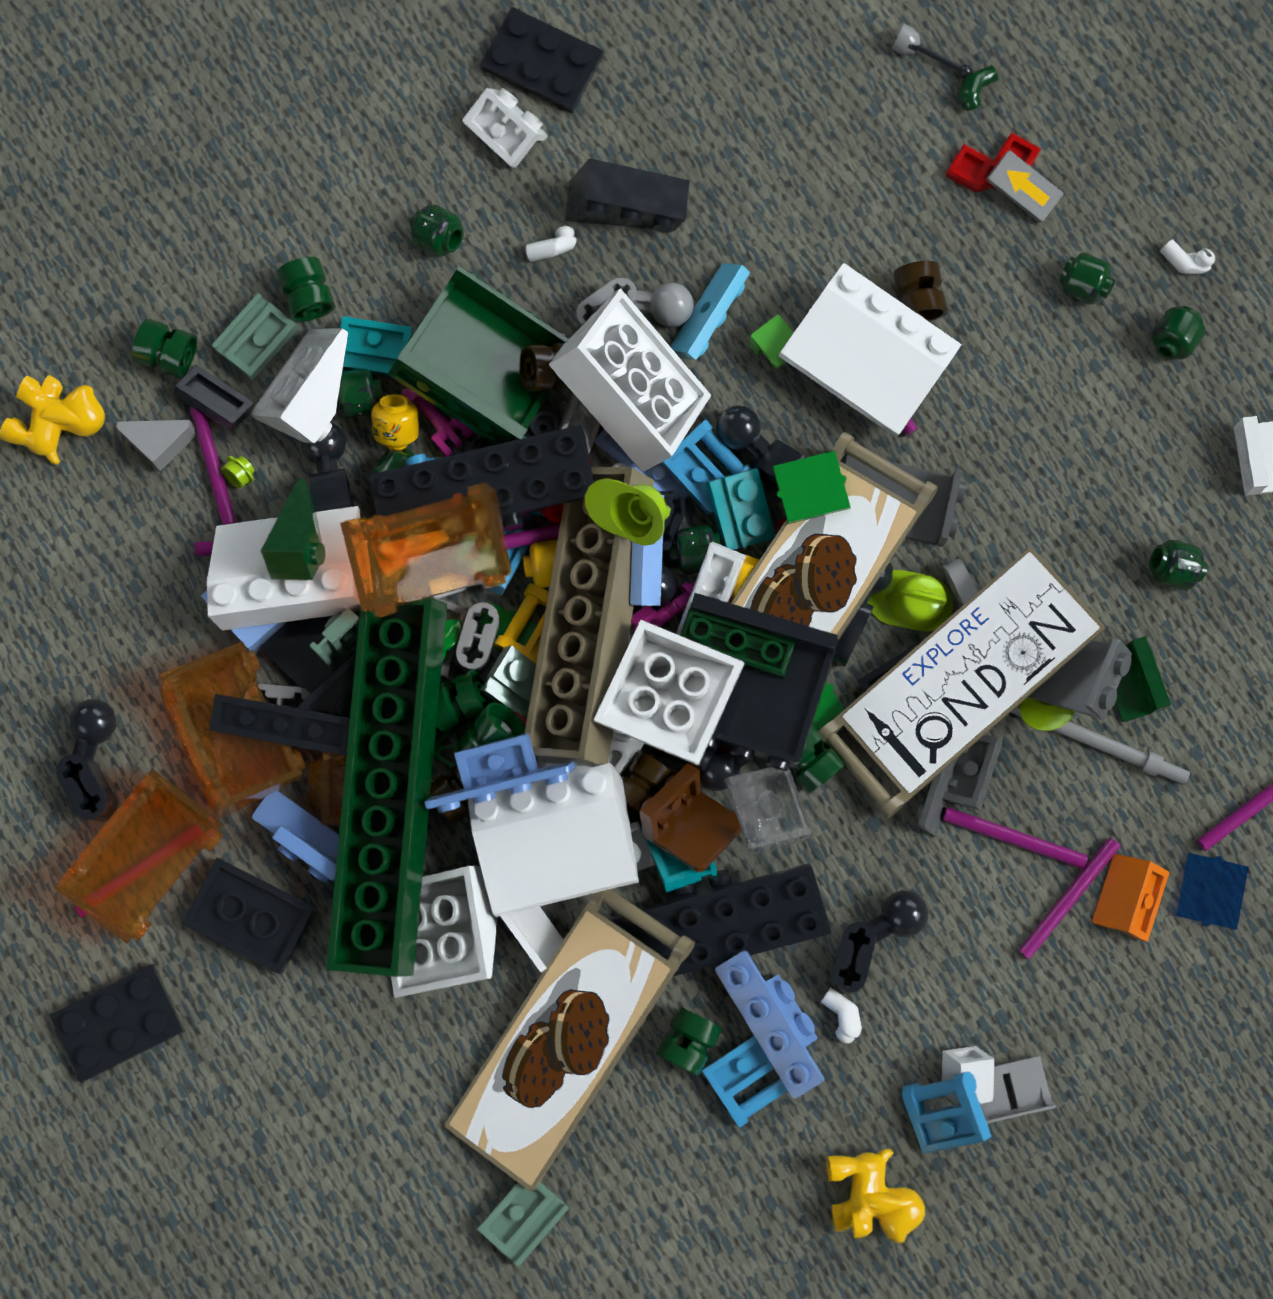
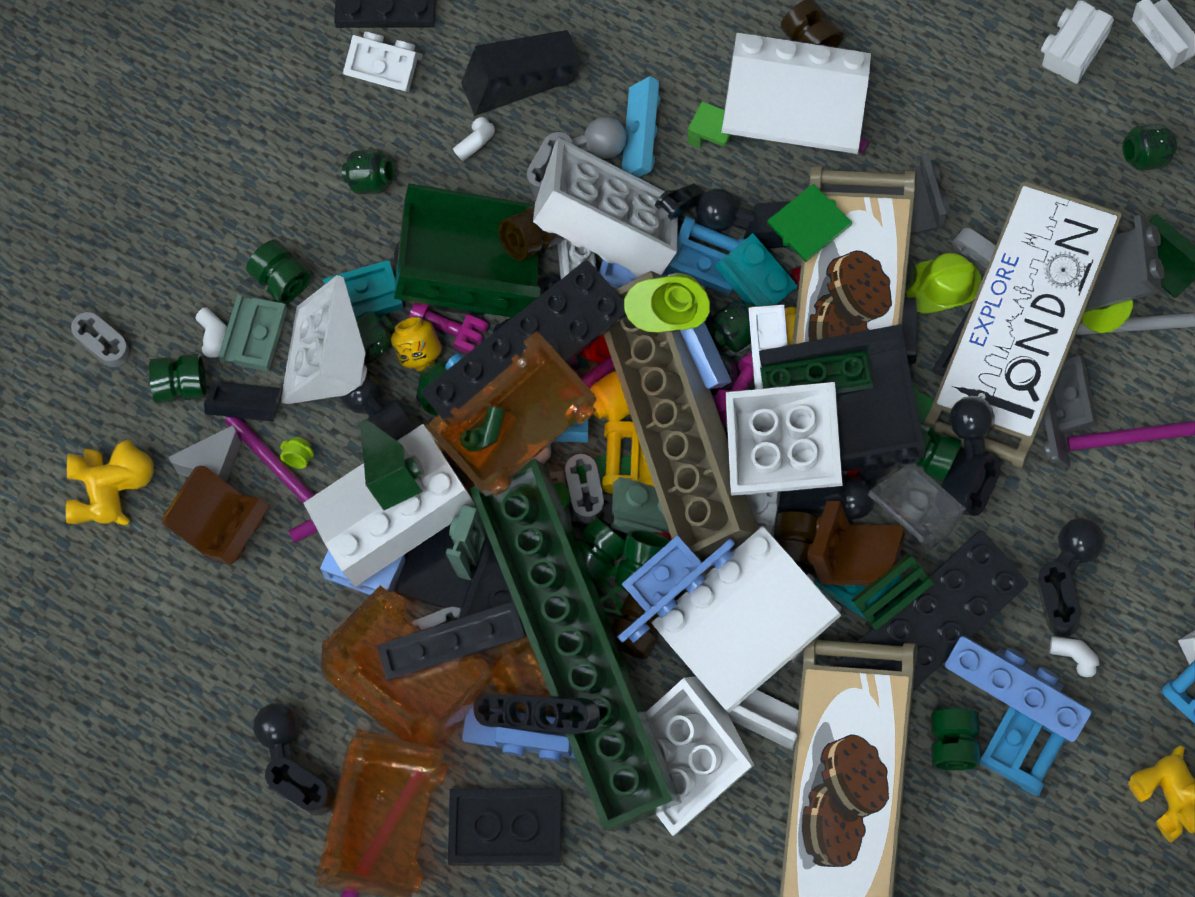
camera: 20 degrees left, 10 degrees down
(108, 277) = (105, 334): none -> light grey beam
(132, 497) = (214, 516): none -> reddish brown bracket
(221, 317) = (213, 334): none -> white arm
(322, 825) = (535, 712): none -> black beam
(399, 550) = (484, 434): none -> dark green arm
(700, 895) = (899, 604): none -> dark green tile
(707, 402) = (679, 200): none -> black bar
(840, 799) = (973, 470): none -> black beam
(1166, 425) = (1077, 41): none -> white brick

